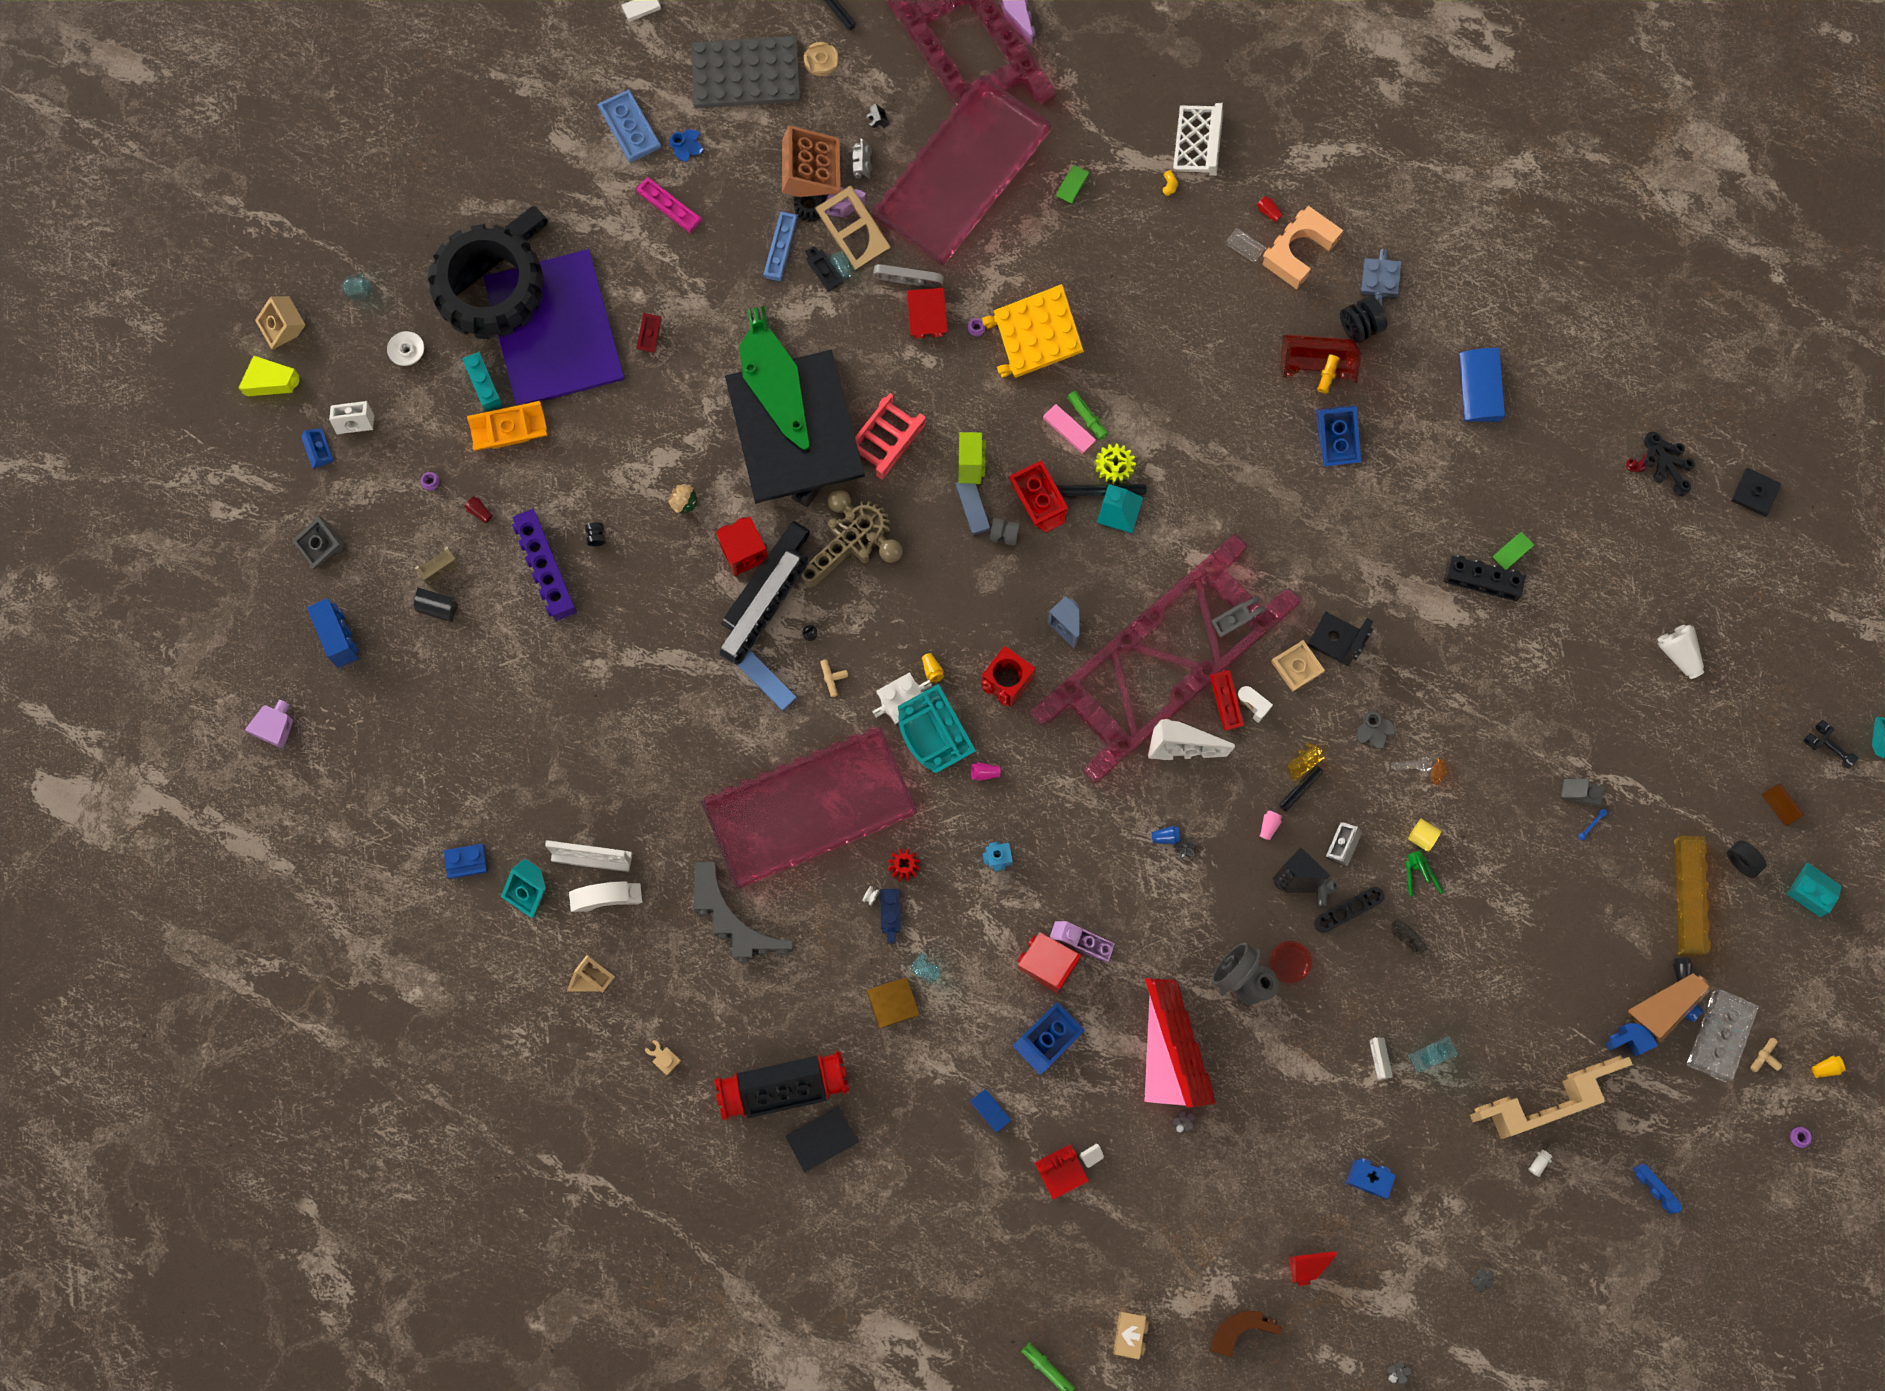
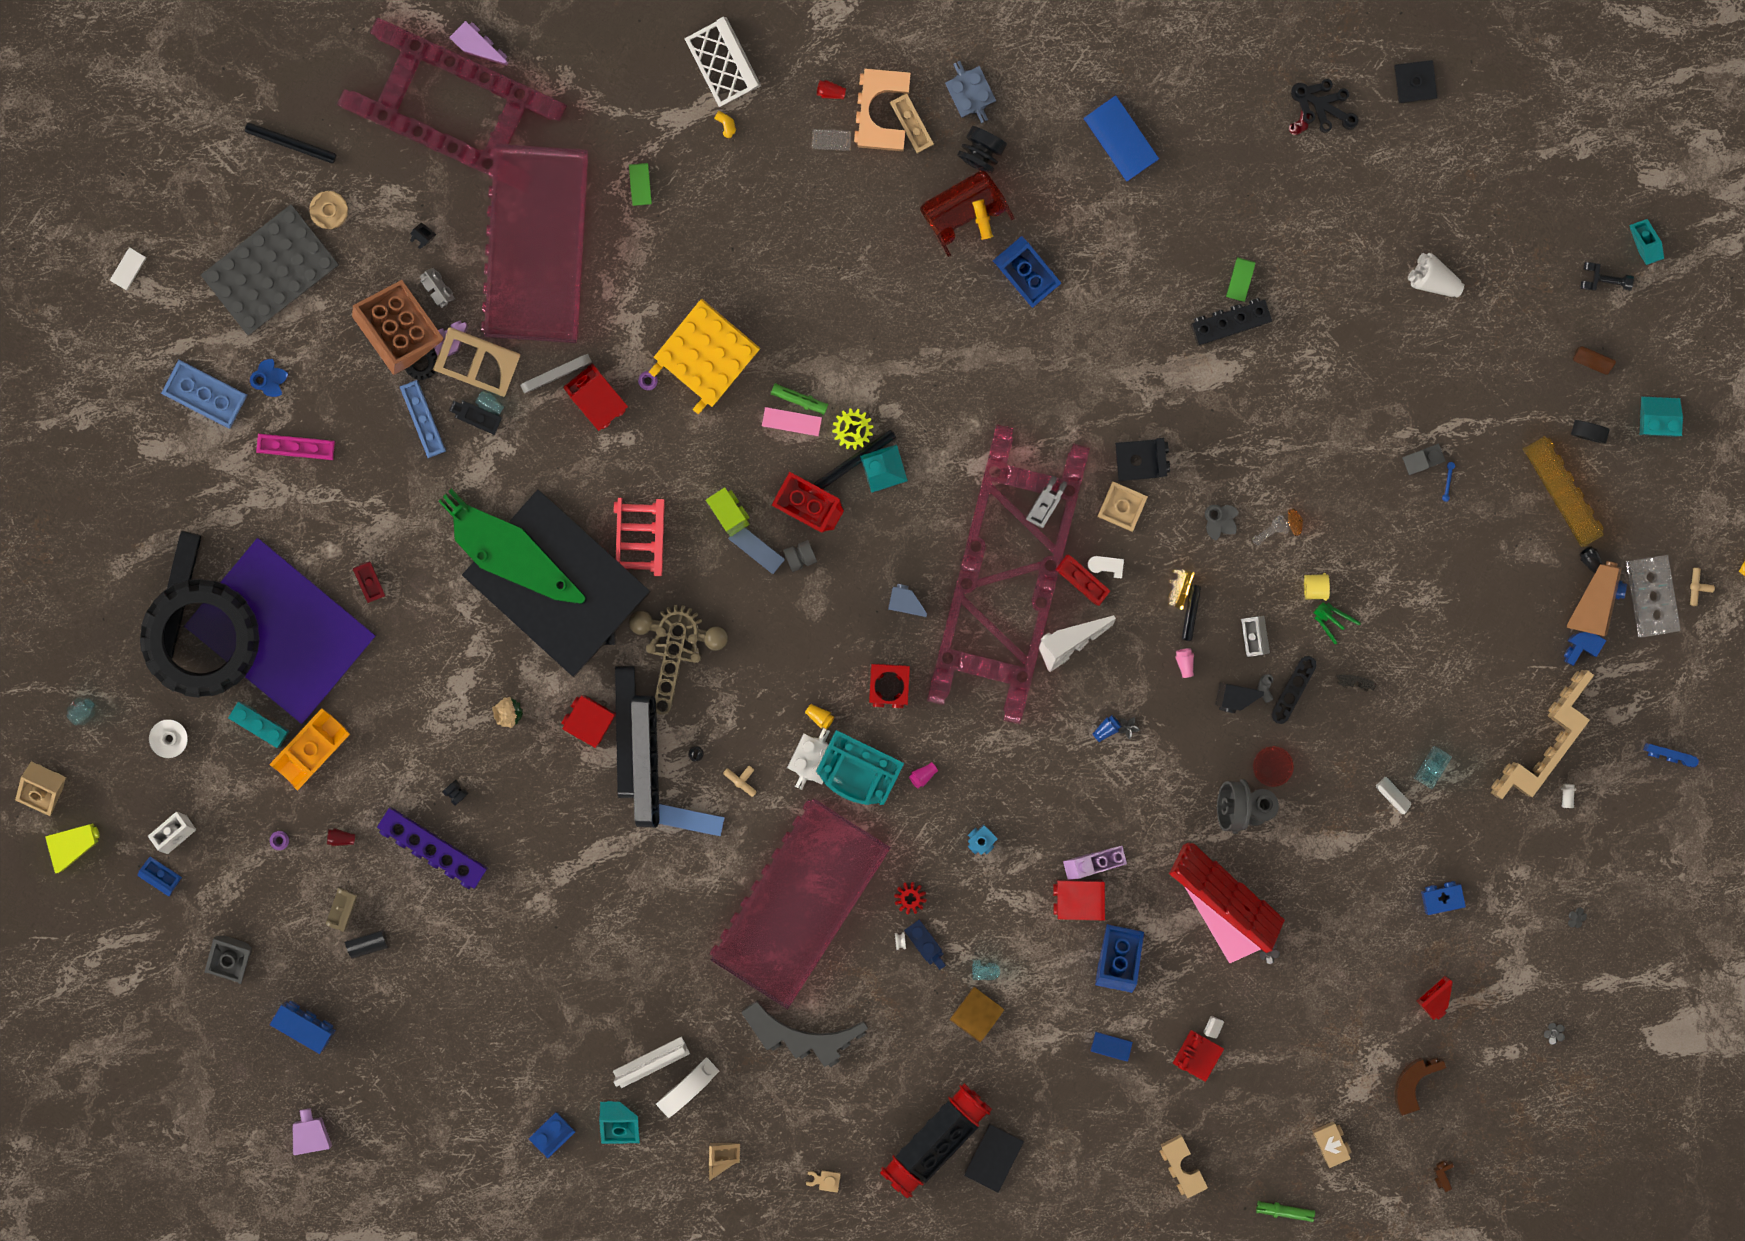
camera: 30 degrees left, 15 degrees up
(983, 1243) = (1190, 1182): none -> tan arch
(1319, 271) = (911, 123): none -> tan plate

